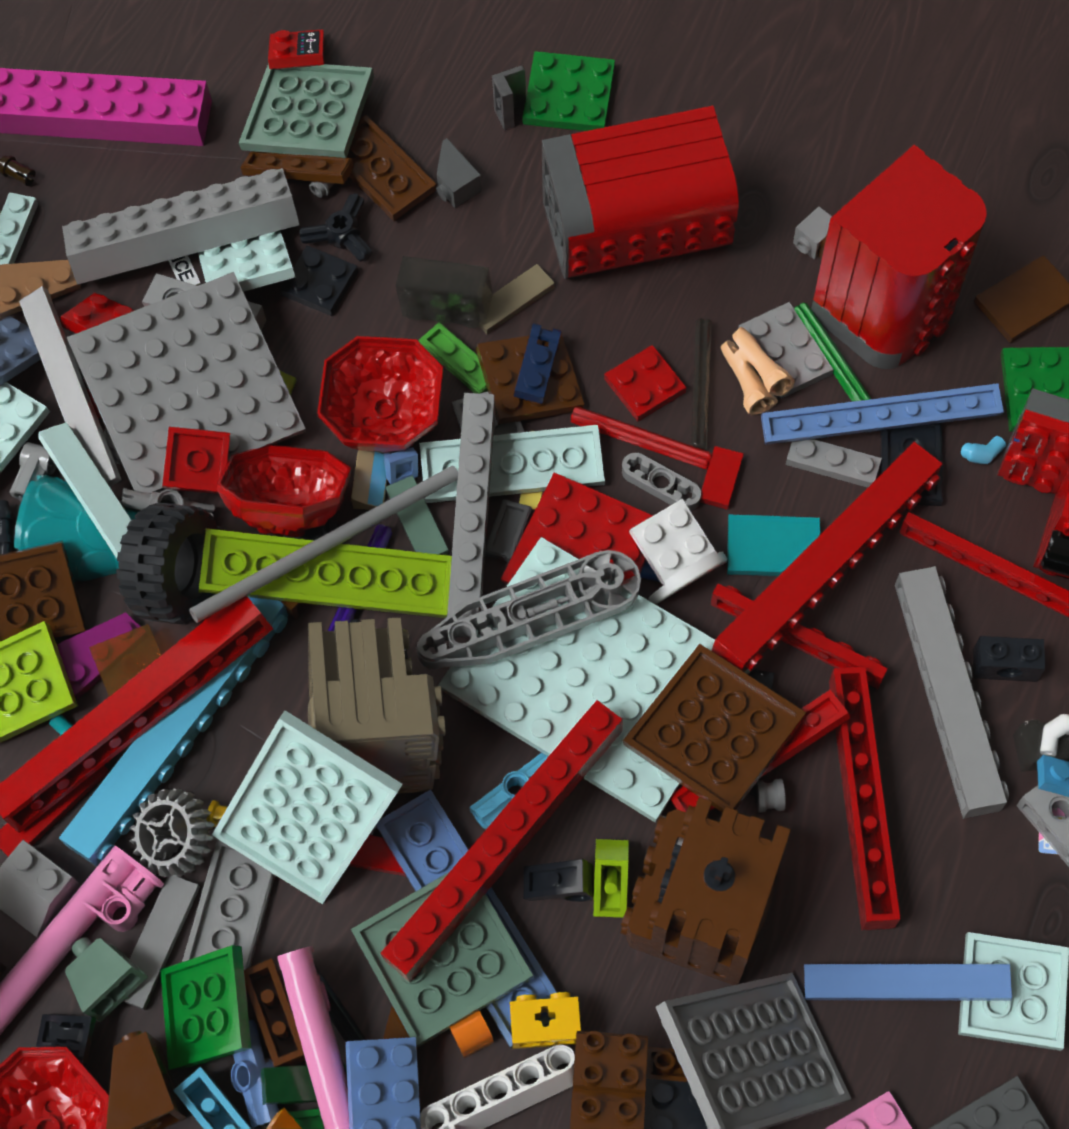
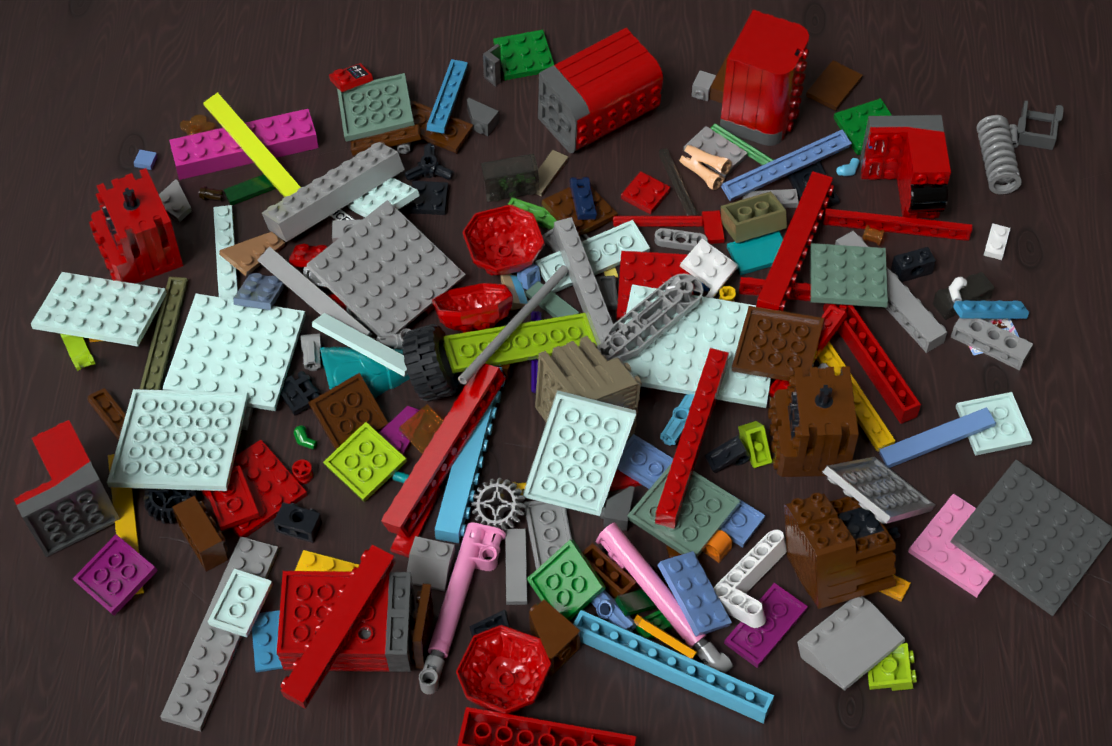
camera: 25 degrees left, 10 degrees down
(49, 55) = (196, 125): none -> clear orange plate
(78, 179) = (248, 189): none -> dark green tile
(94, 115) = (251, 145): none -> neon yellow tile
(101, 977) = (497, 589): sand green torso -> none
(195, 459) = (414, 307): red plate -> none
(349, 908) = (618, 508): none -> dark grey slope
(417, 125) = (447, 96): none -> dark azure plate
(531, 1033) = (757, 521): yellow brick -> none
(687, 600) = (727, 293): none -> yellow bush
(787, 486) = (753, 217): none -> olive brick
(807, 860) = (865, 413): none -> yellow plate
(887, 645) = (848, 275): none -> sand green plate
(968, 582) = (873, 235): none -> clear orange bush

